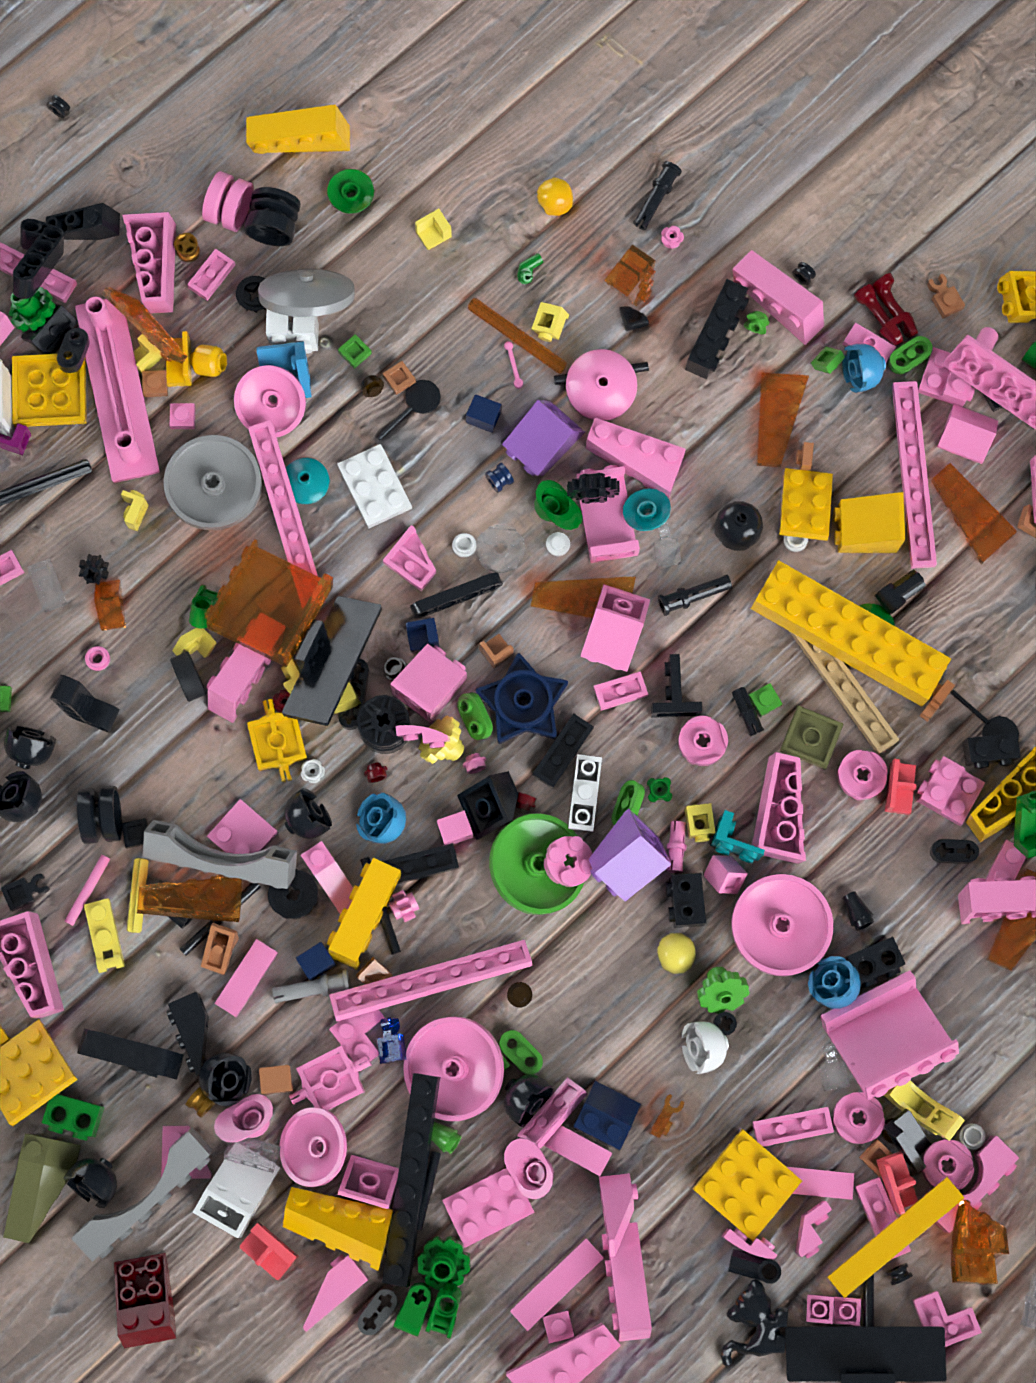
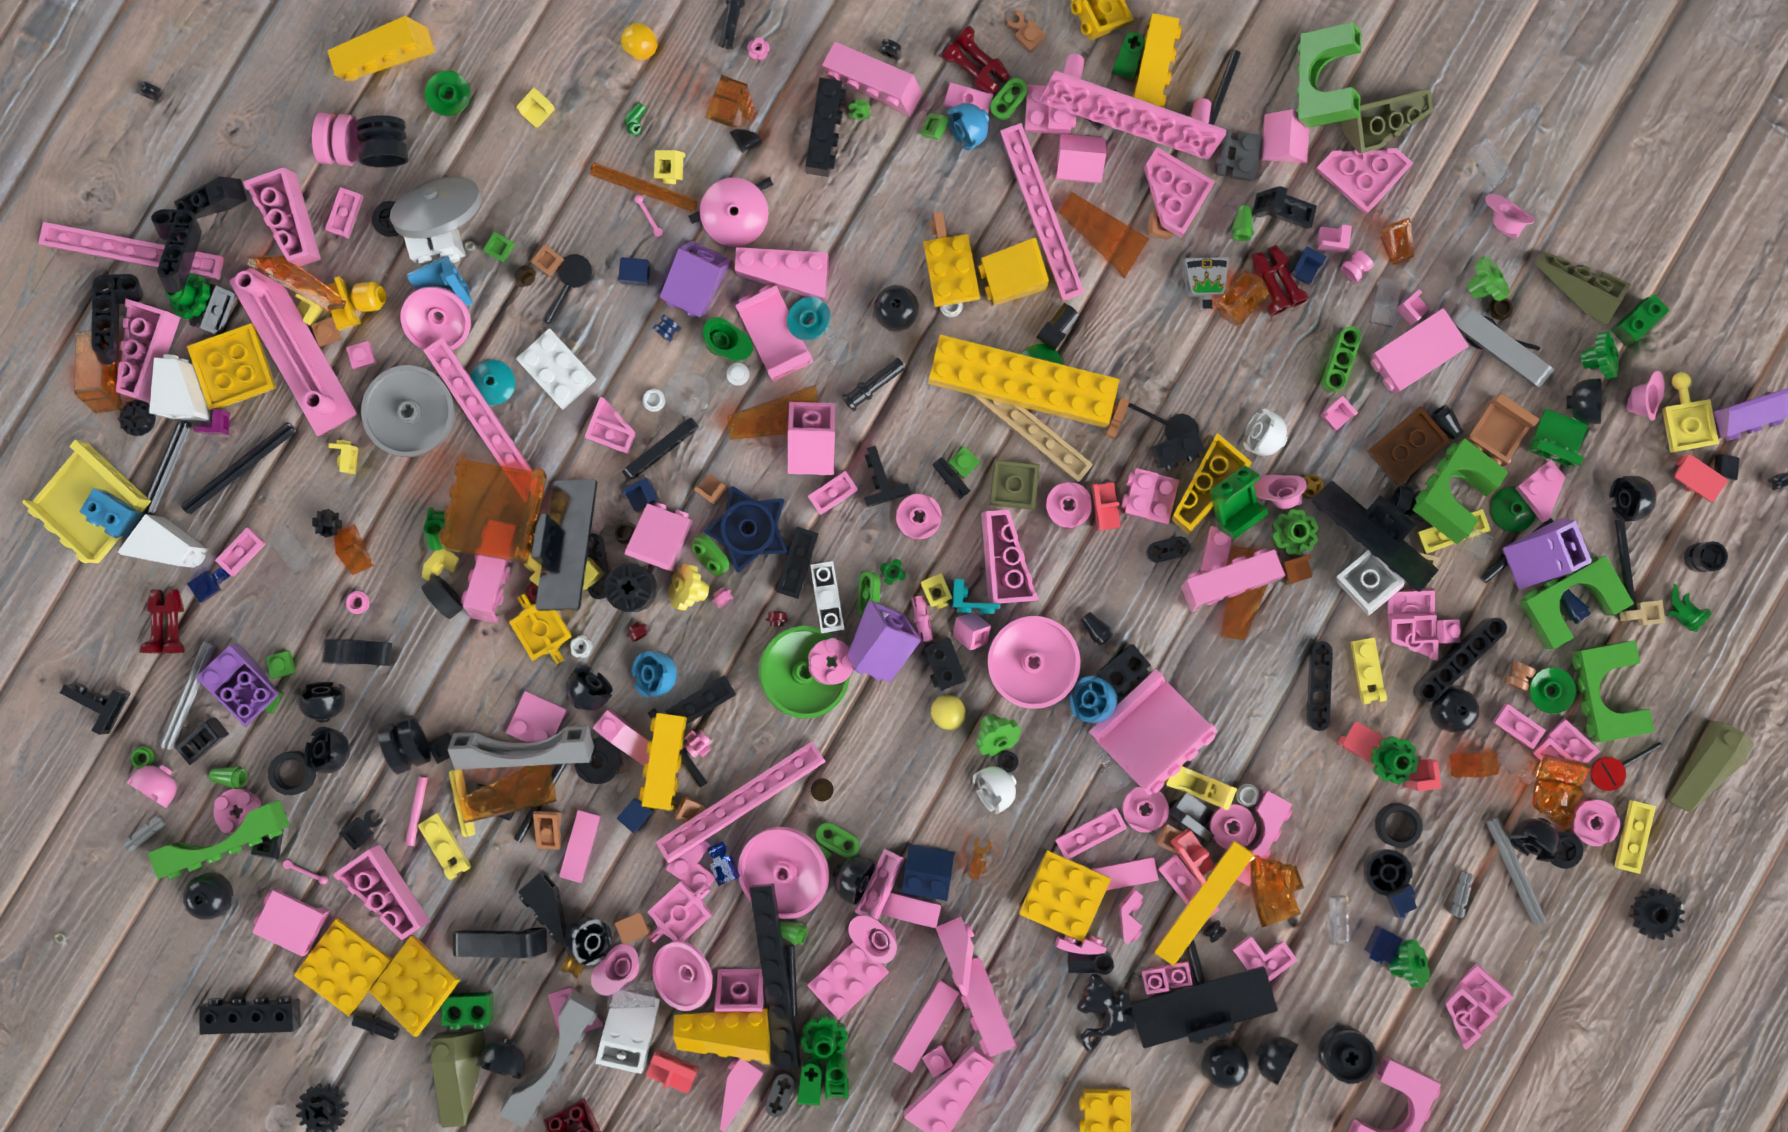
camera: 10 degrees left, 10 degrees up
(75, 348) = (243, 322): black plate -> none
(182, 243) = (309, 189): pearl gold wheel -> none
(324, 985) = (650, 833): light grey pin -> none
(430, 736) = (673, 591): bright pink slope -> none
(455, 828) = (721, 661): bright pink panel -> none
(489, 803) = (746, 630): black slope -> none
(593, 488) = (754, 315): black gear -> none
(777, 414) = (901, 184): clear orange wing -> none

